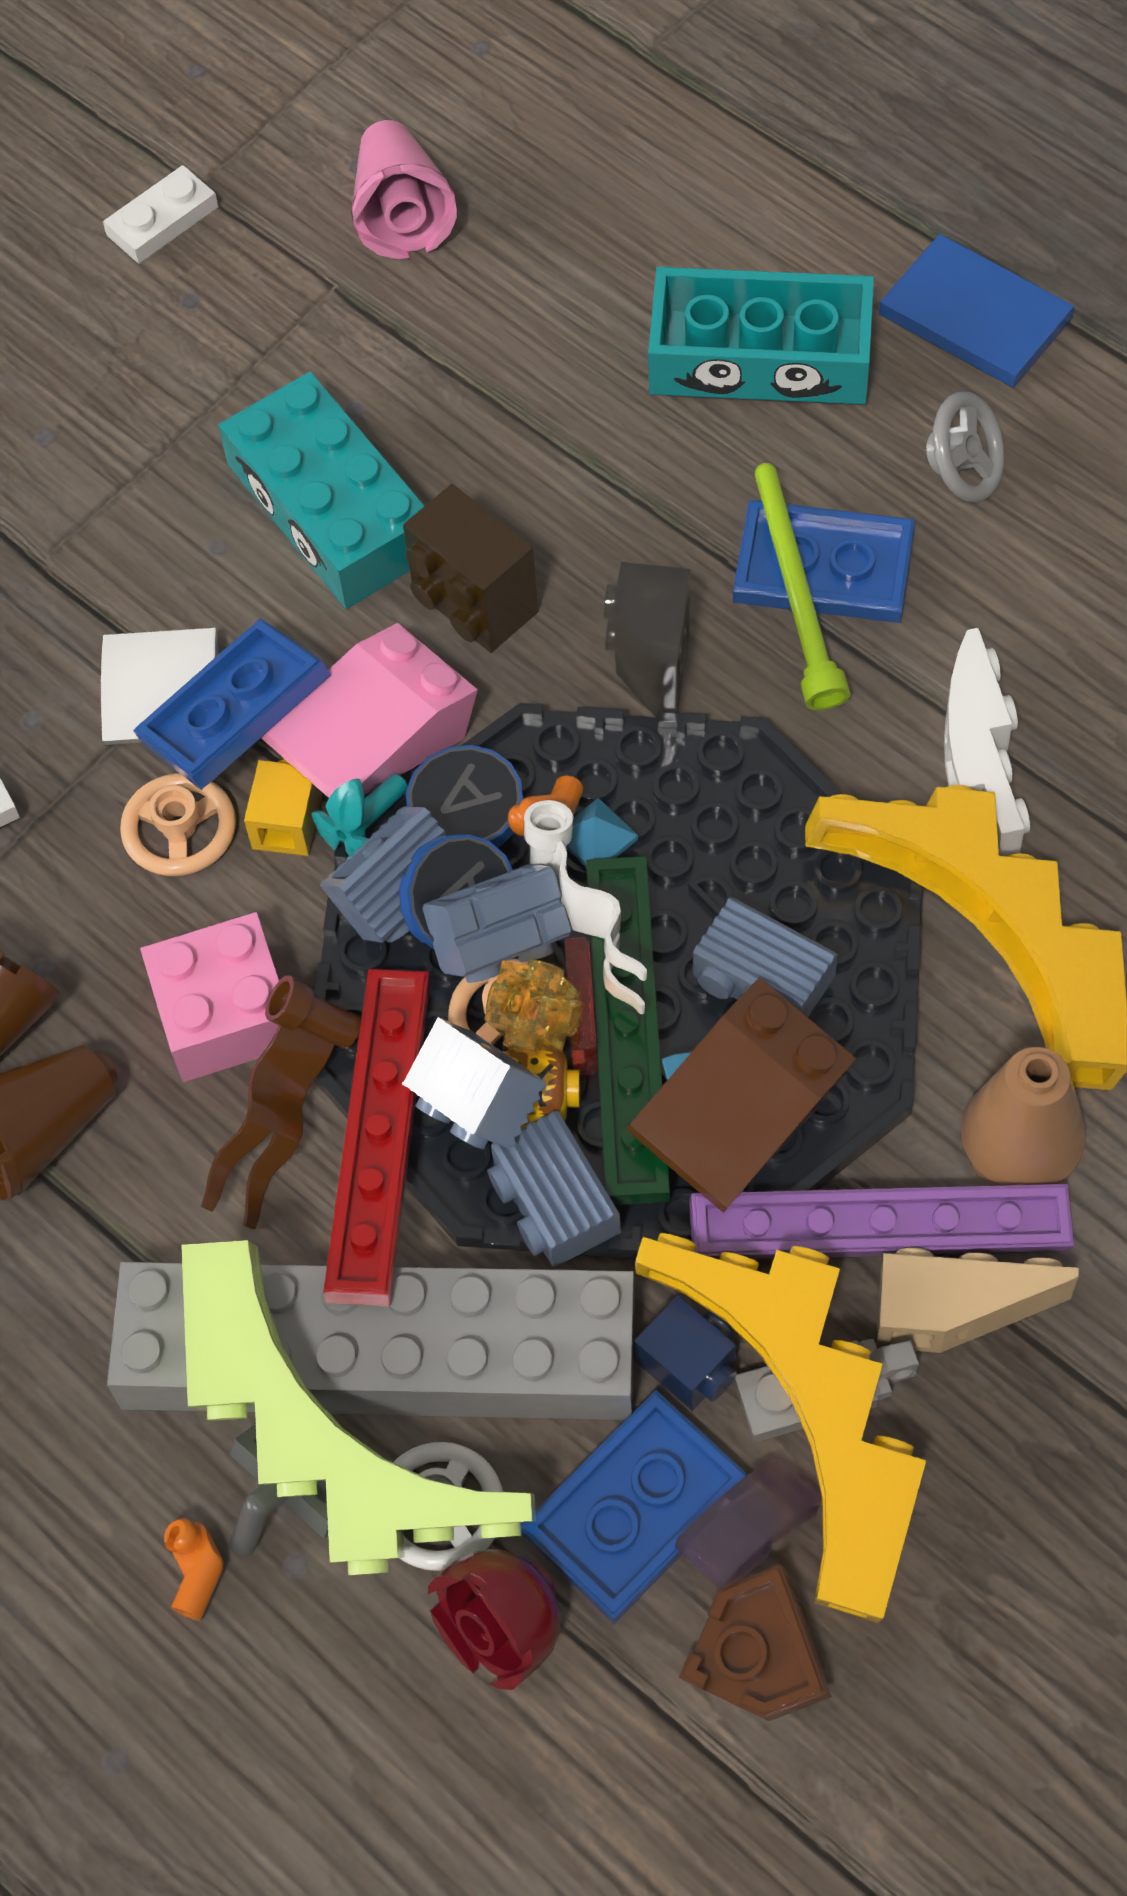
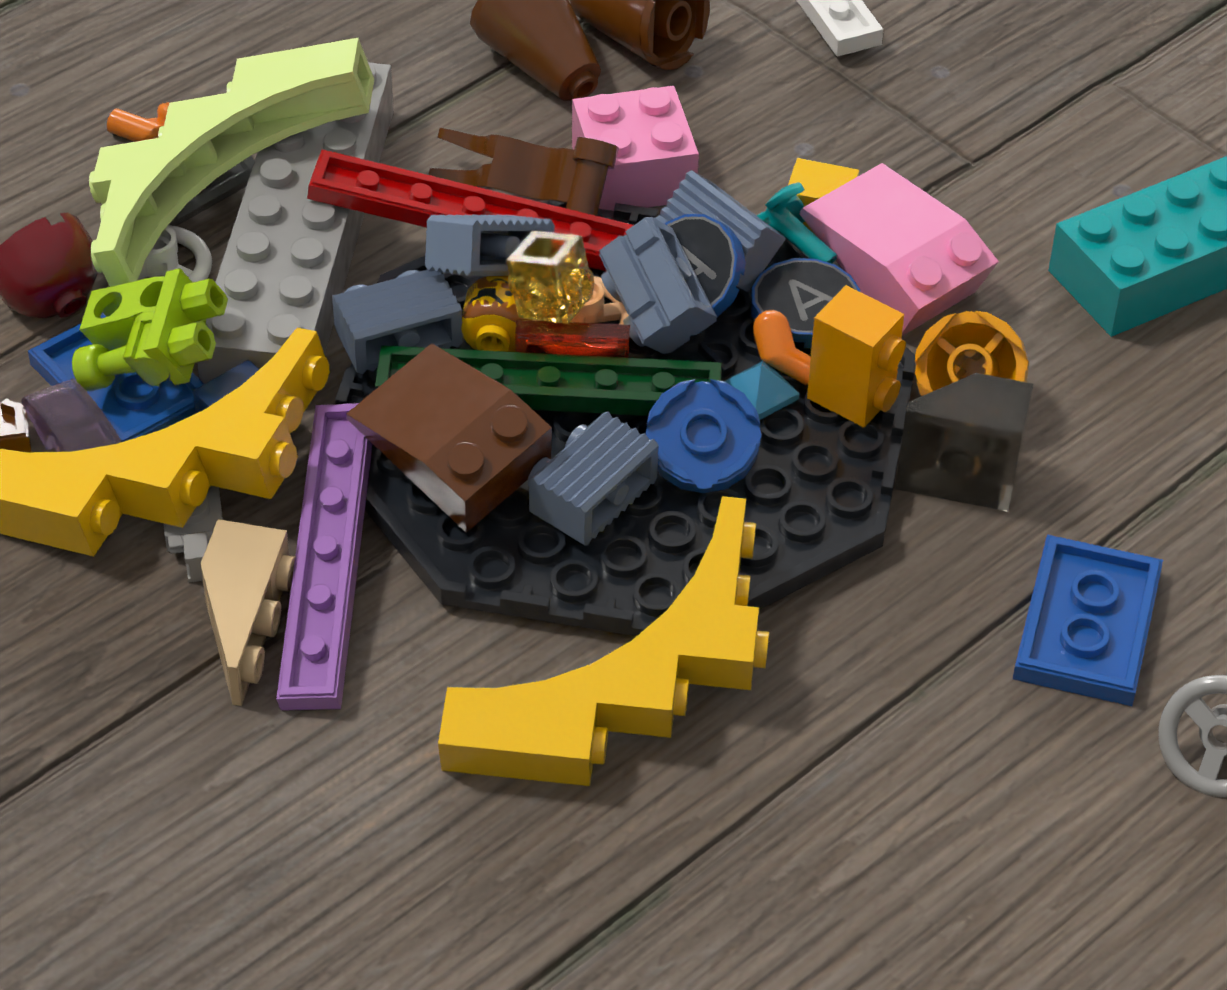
camera: 90 degrees right, 15 degrees down
(144, 672) = (961, 134): white slope -> none
(169, 798) = (818, 140): light nougat piece -> none
(231, 703) = (918, 151): blue tile -> none
(470, 568) = (1067, 314): dark brown brick -> none
(548, 643) = (969, 345): none -> light orange cylinder
(583, 724) = (856, 356): none -> light orange brick
(589, 910) = (717, 336): white flag -> none
(625, 1426) = (148, 329): none -> lime hips
(687, 868) = (704, 435): none -> blue tile
(823, 683) = (931, 588): lime piece -> none
(979, 737) = (861, 695): white slope -> none
(1025, 1122) = (401, 662): medium nougat cone -> none

